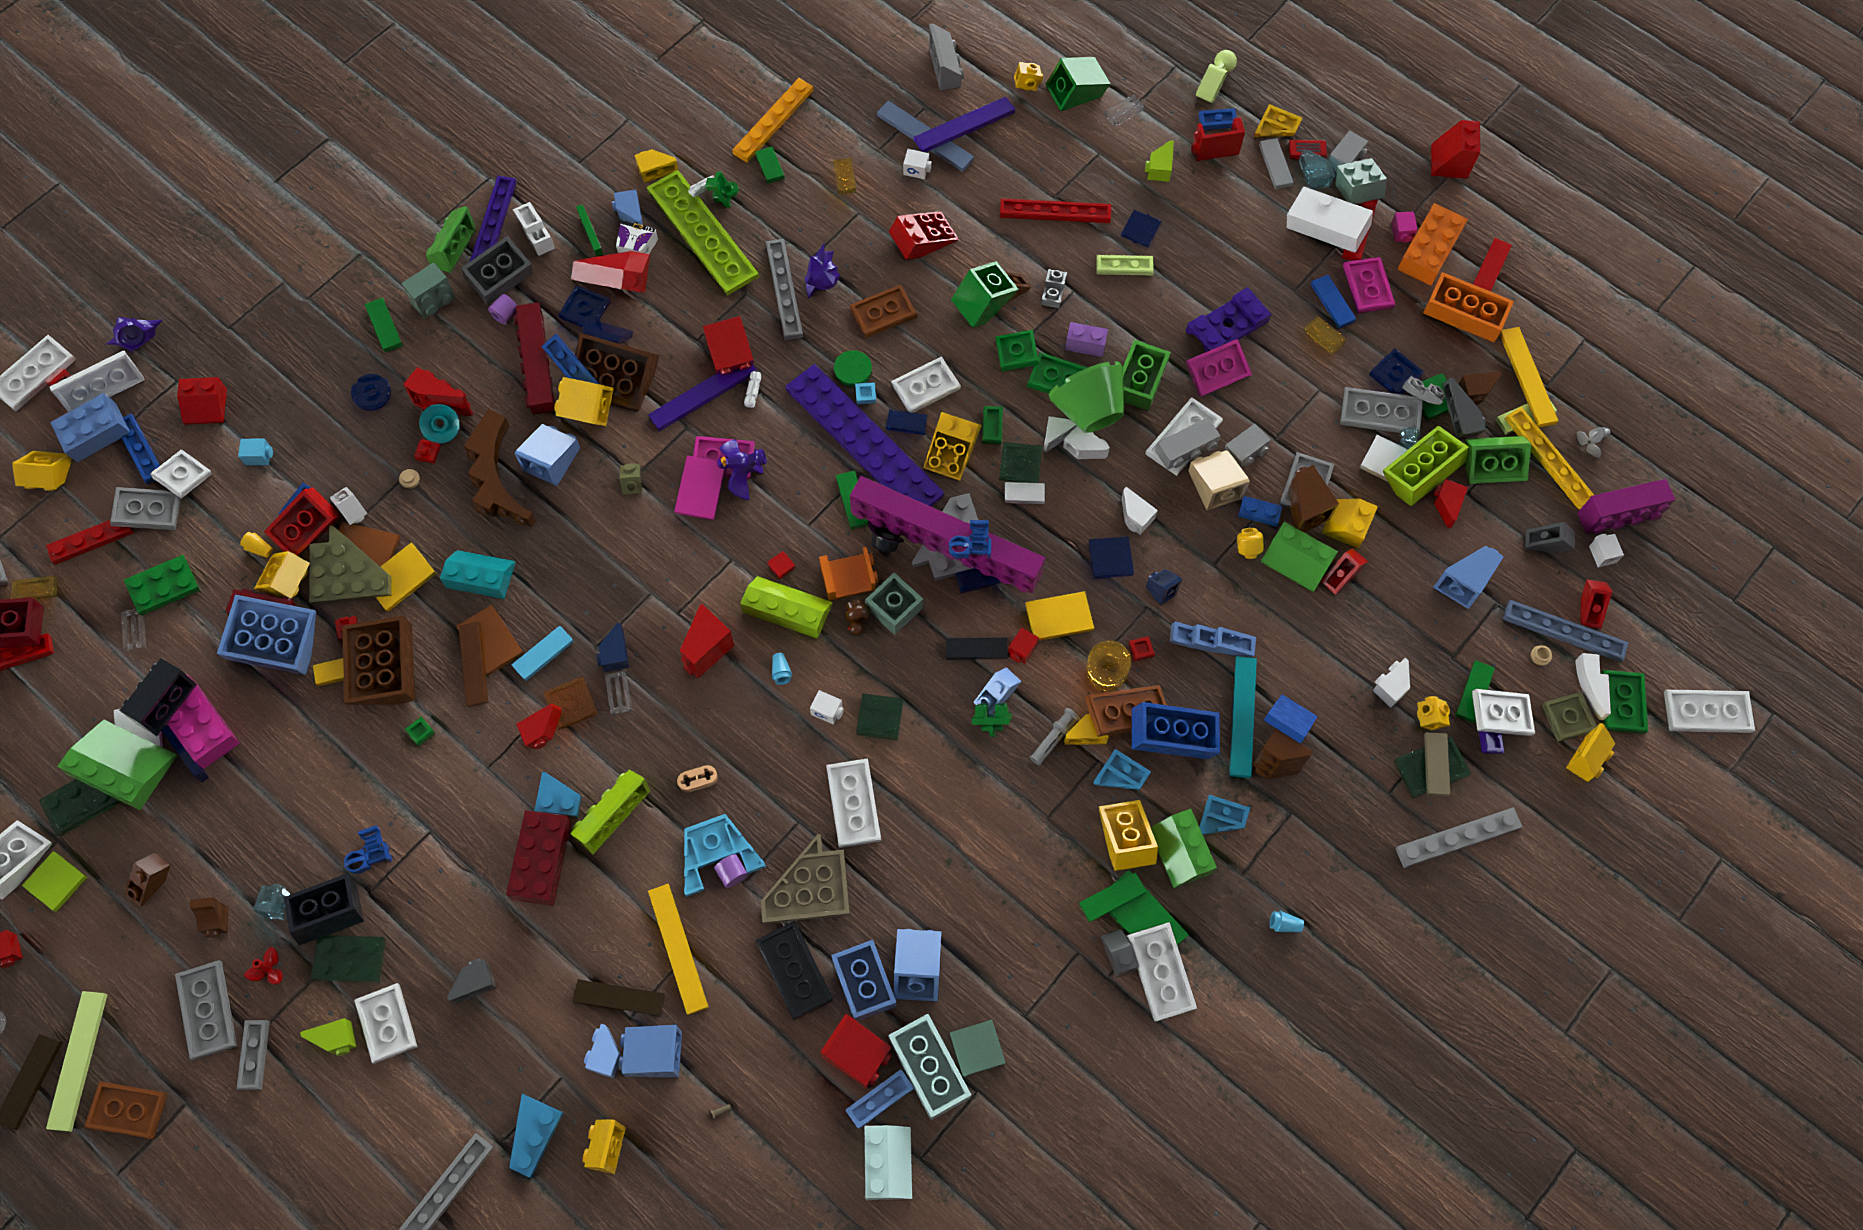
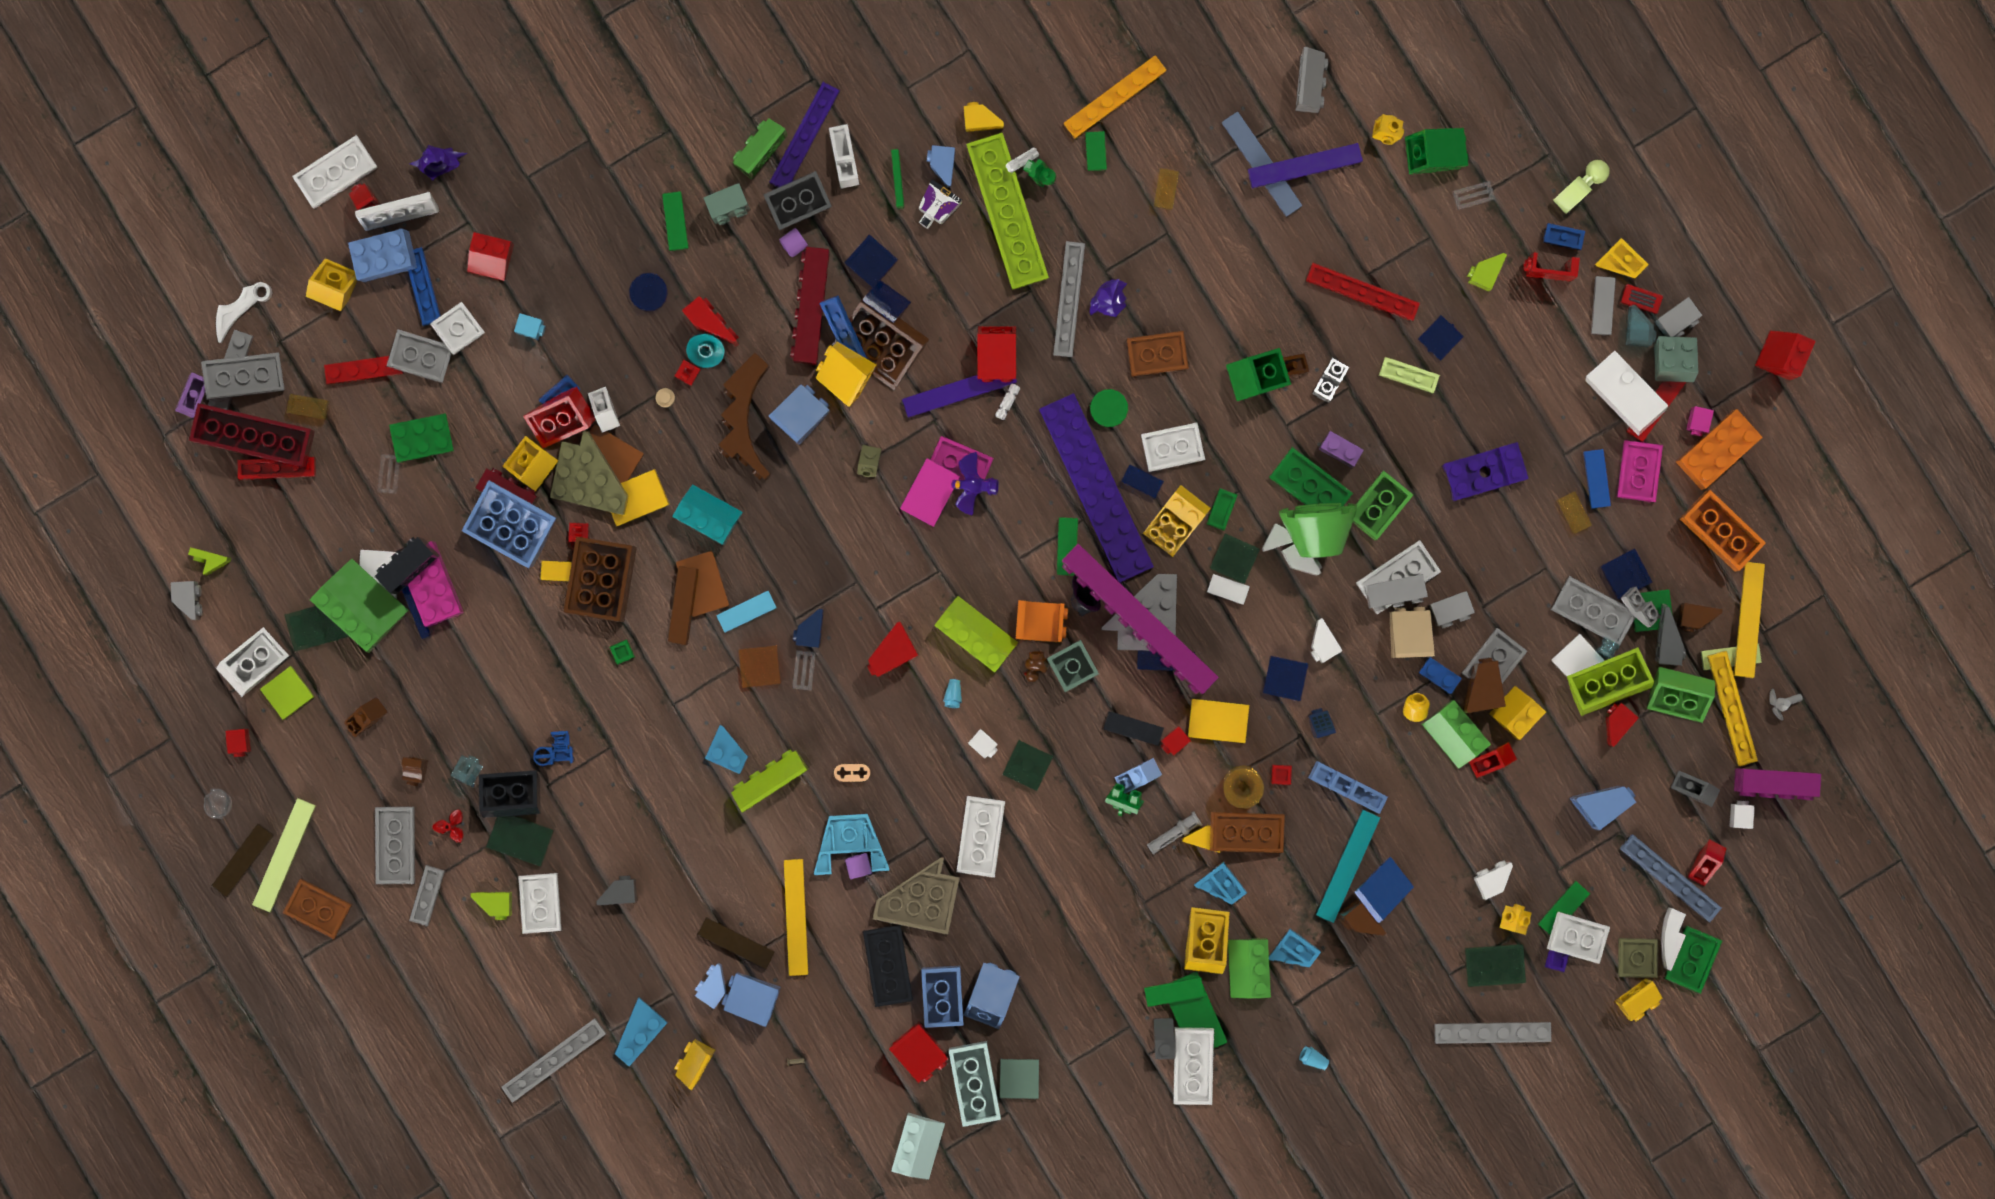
camera: 20 degrees right, 20 degrees up
(255, 544) = (513, 424): yellow cone -> none
(539, 858) = (699, 803): dark red brick -> none
(540, 726) = (727, 685): red slope -> none
(617, 270) = (913, 236): red wedge -> none
(781, 565) = (982, 591): red tile -> none
(865, 393) = (1112, 440): medium azure plate -> none
(879, 1099) = (926, 1094): medium blue plate -> none
(916, 164) = (1242, 198): white brick -> none
(921, 234) = (1222, 280): red slope -> none
(978, 543) = (1163, 644): blue piece -> none
(1017, 350) = (1271, 438): green tile -> none
(1175, 730) = (1280, 867): blue brick -> none
(1218, 367) = (1456, 518): dark pink tile -> none
(1437, 764) = (1498, 966): dark tan tile -> none
(1492, 264) = (1765, 491): red tile -> none
(1541, 655) = (1637, 894): tan plate -> none
(1709, 711) = (1765, 991): white tile -> none

